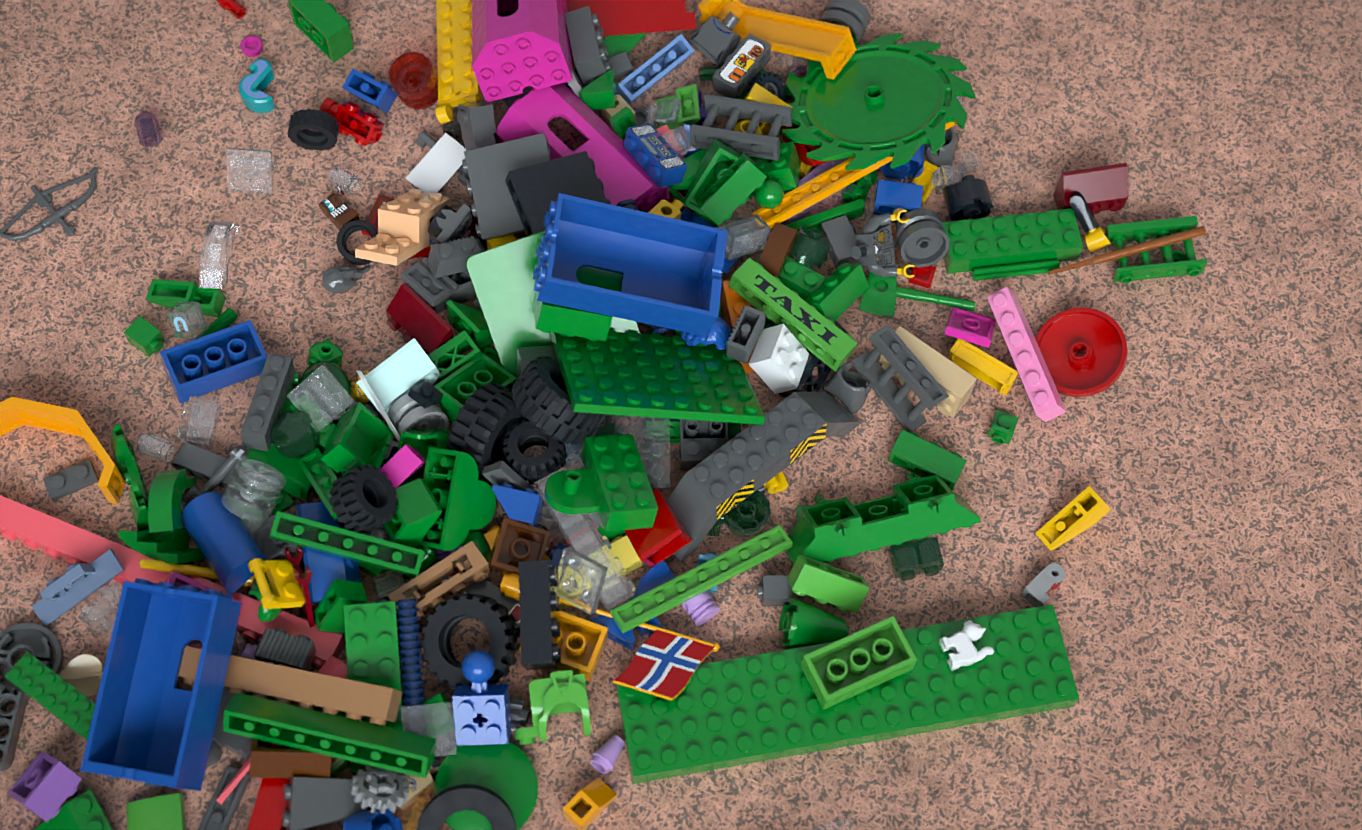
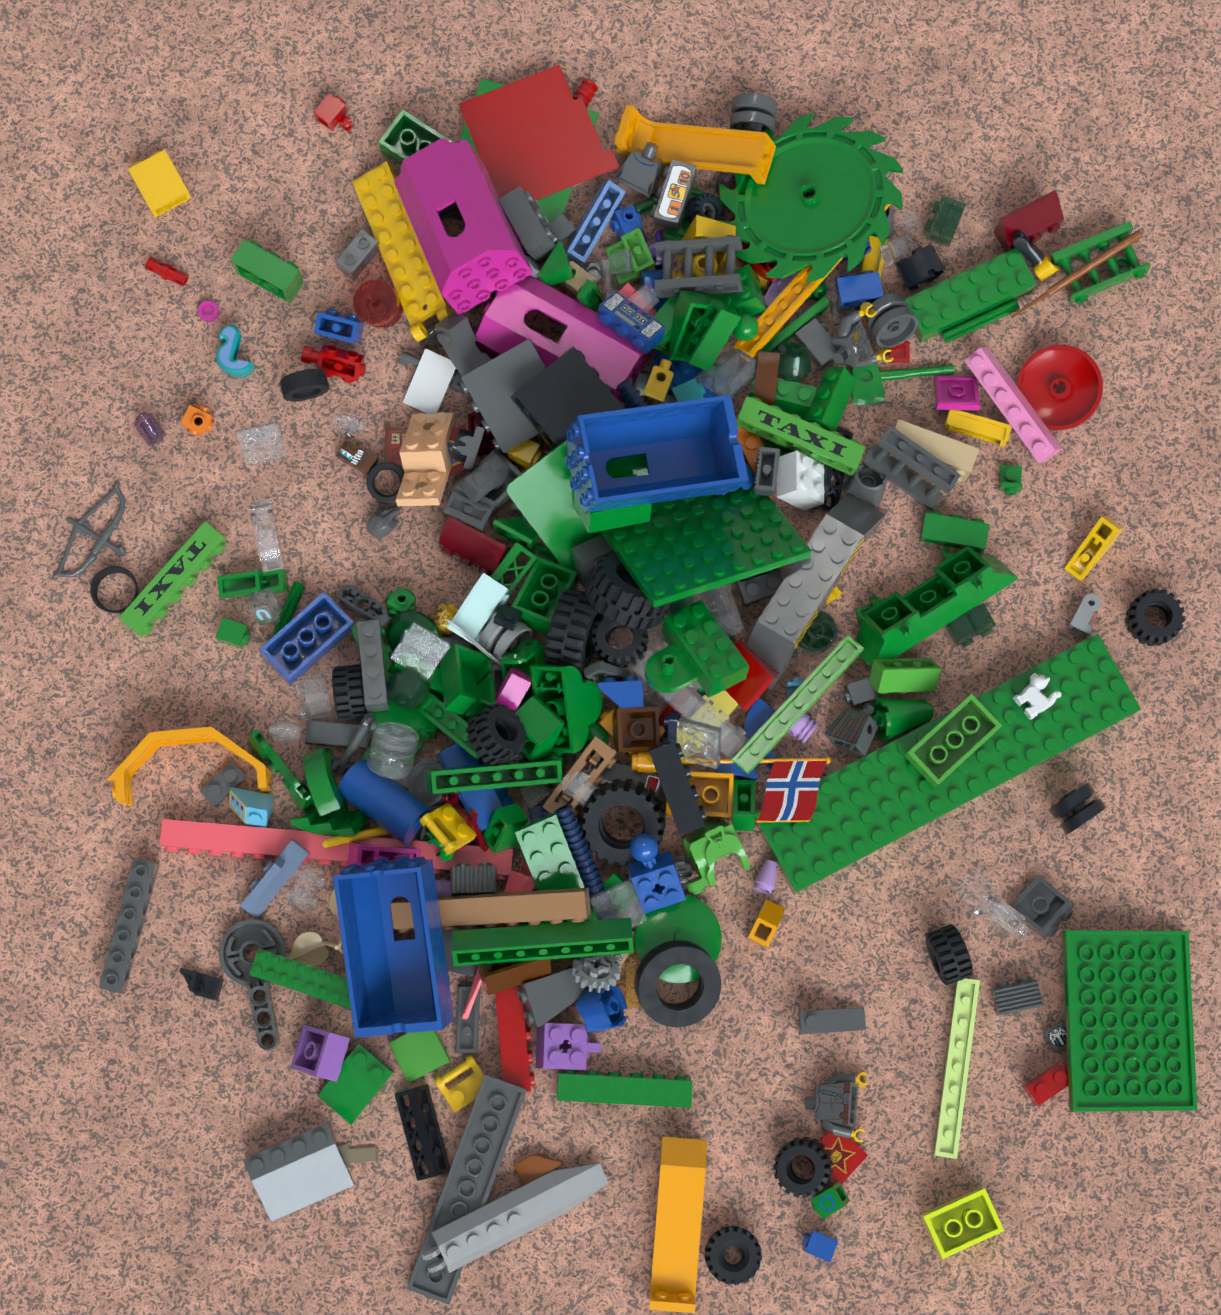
camera: 15 degrees left, 15 degrees up
(39, 246) = (100, 576): none -> black tyre
(89, 509) = (251, 806): none -> medium azure slope
(107, 270) = (173, 579): none -> bright green brick
(197, 132) = (202, 412): none -> orange brick
(229, 421) = (348, 692): none -> black tyre
(284, 344) = (358, 598): none -> dark grey beam
(414, 35) = (357, 255): none -> dark grey brick
(432, 584) = (578, 787): none -> clear brick
(607, 666) = (743, 805): none -> green brick
(685, 75) = (625, 220): none -> blue brick
(754, 625) = (853, 729): none -> dark grey torso
(978, 783) = (1077, 808): none -> black wheel
(1006, 169) = (945, 222): none -> clear green brick
(1112, 625) = (1142, 629): none -> black tyre

